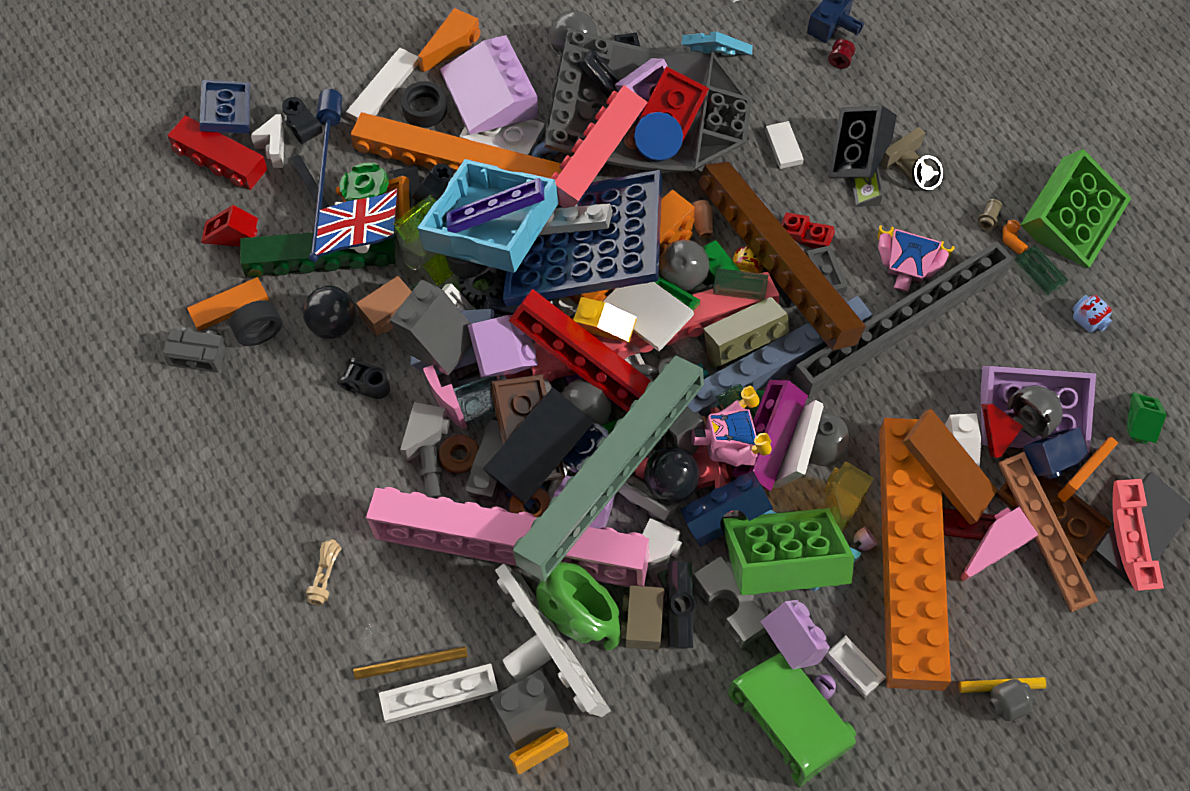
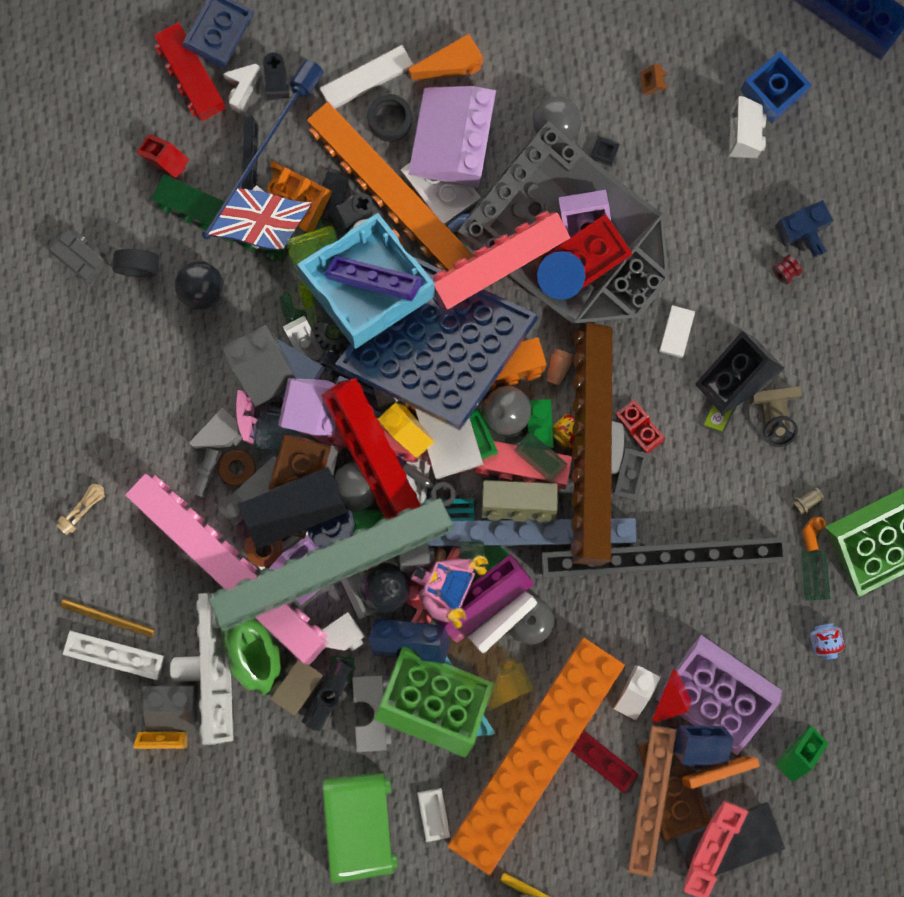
camera: 30 degrees right, 20 degrees up
(226, 303) = (127, 226): orange tile -> none
(360, 377) = (196, 357): black piece -> none
(364, 182) = (291, 177): green tile -> none
(382, 304) = (251, 303): nougat brick -> none
(578, 219) = (442, 323): light grey plate -> none
(599, 72) = (551, 180): black tile -> none
(717, 43) = (674, 203): medium azure wing -> none
(796, 635) = (394, 773): lavender slope -> none
(822, 688) = (405, 814): lavender hinge -> none
(866, 538) = (508, 722): lavender hinge -> none
(911, 256) = (709, 504): bright pink torso -> none
(950, 466) = (606, 709): dark orange tile -> none
(1004, 536) = (611, 787): bright pink slope -> none
(1036, 410) = (710, 705): dark grey cylinder -> none

